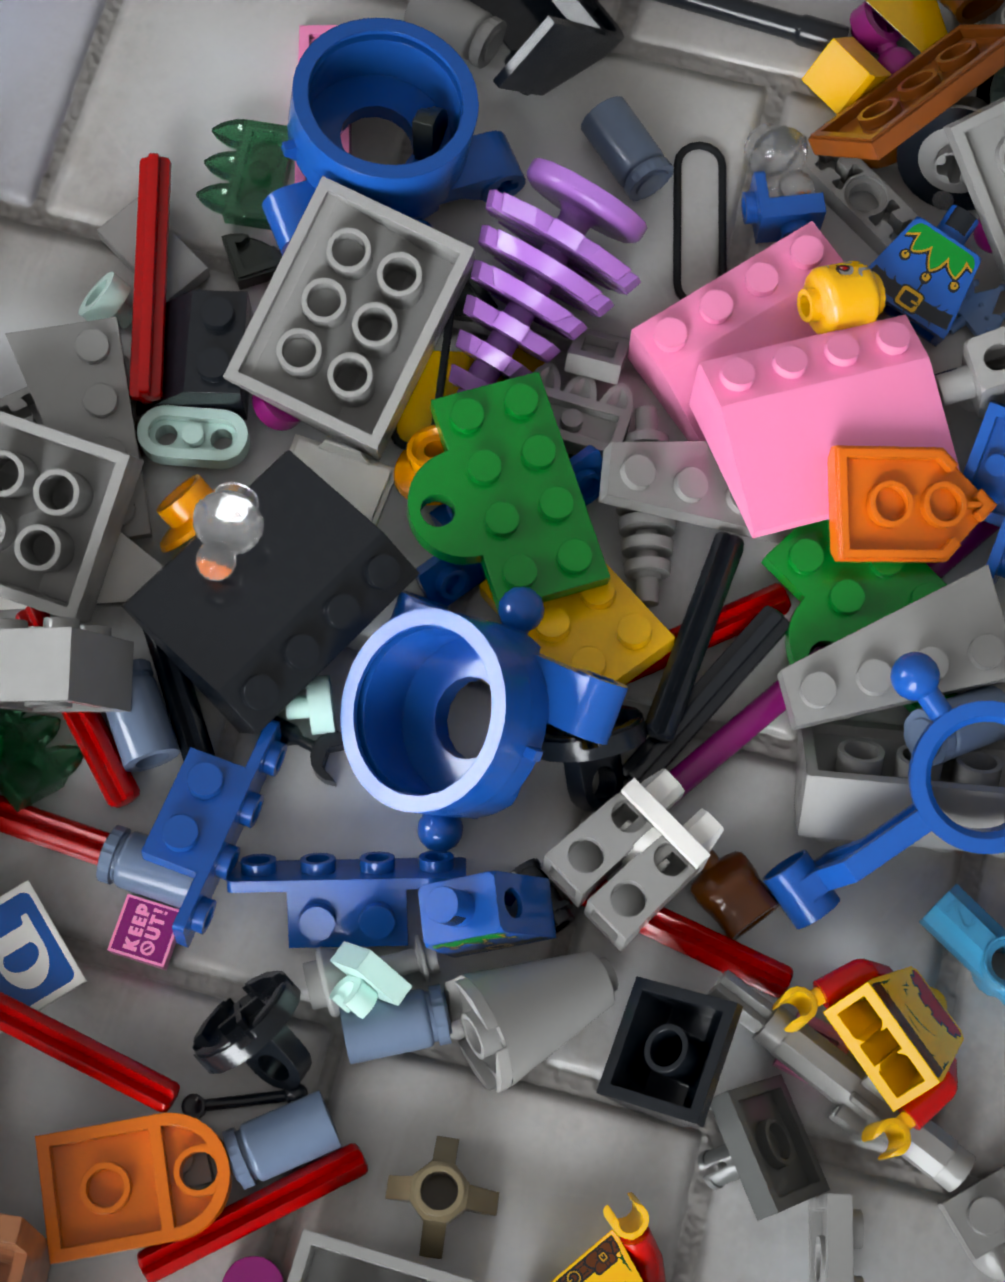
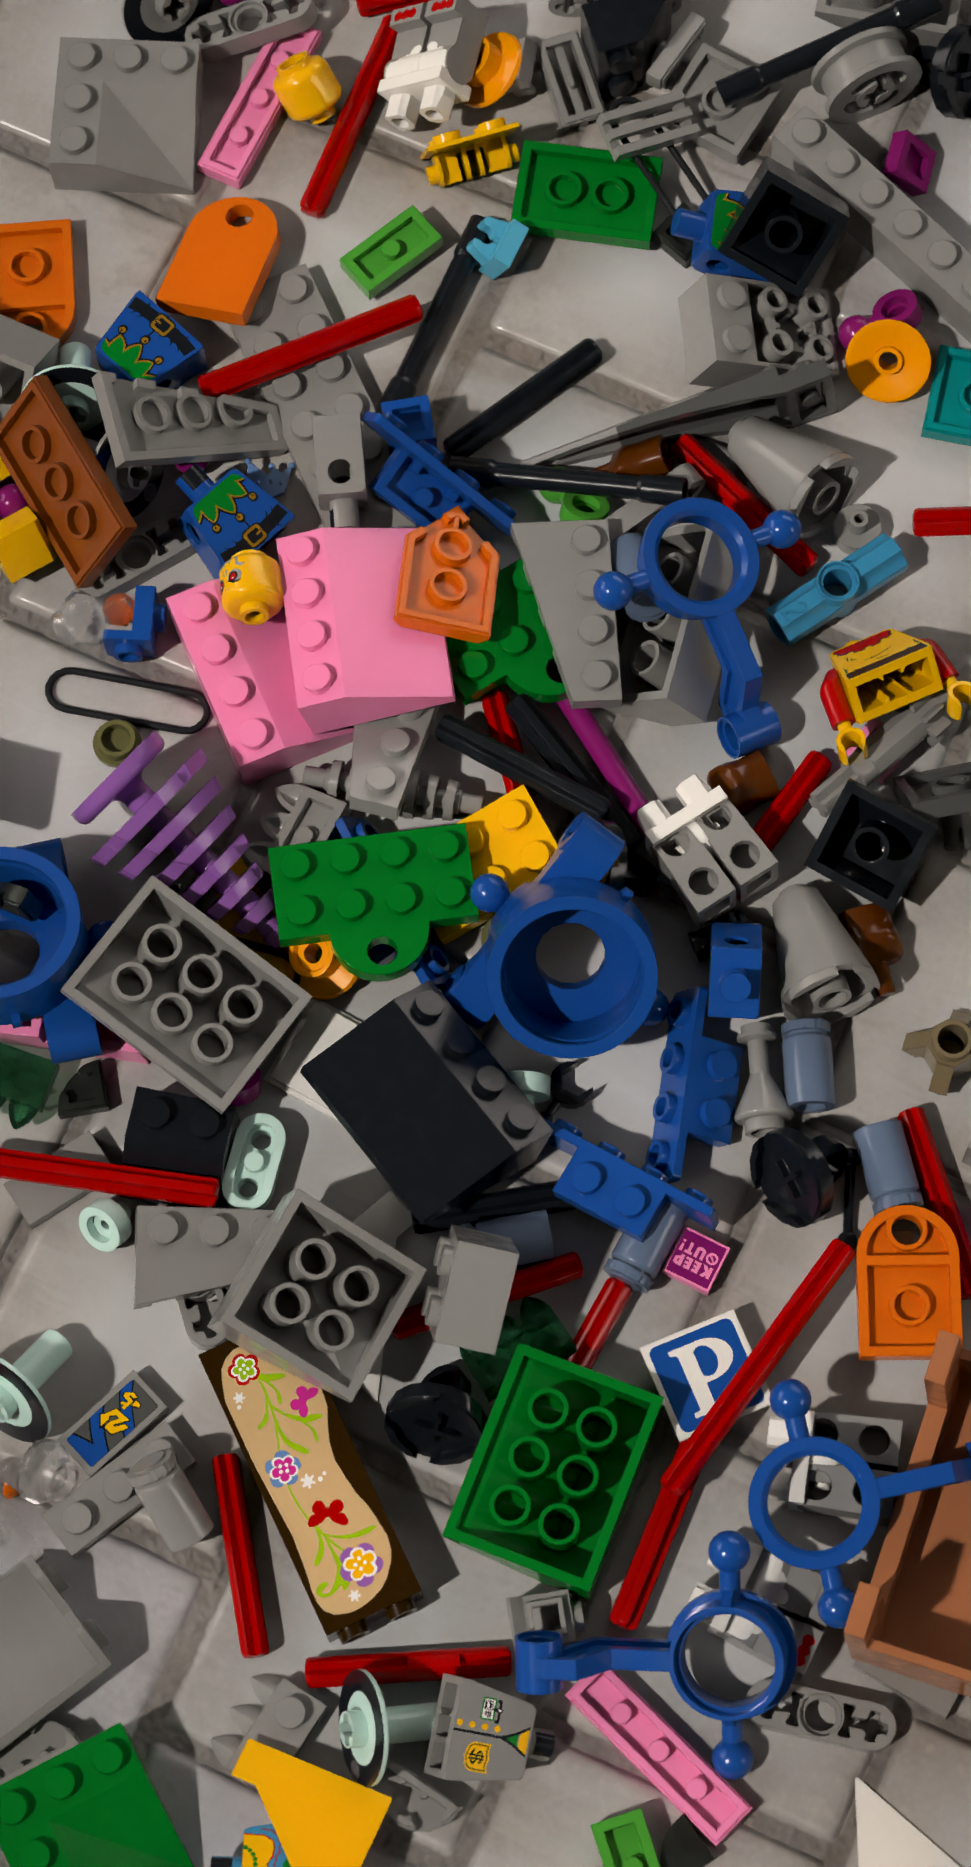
camera: 75 degrees left, 0 degrees up
(178, 511) = (335, 1164): light orange piece -> none
(227, 527) = (375, 1118): clear animal -> none
(365, 981) = (775, 1073): light aqua tile -> none
(561, 1082) = (877, 939): none -> reddish brown piece
(597, 356) = (249, 803): light grey tile -> none
(627, 148) = (48, 745): sand blue piece -> none
(655, 213) = (115, 742): none -> olive plate

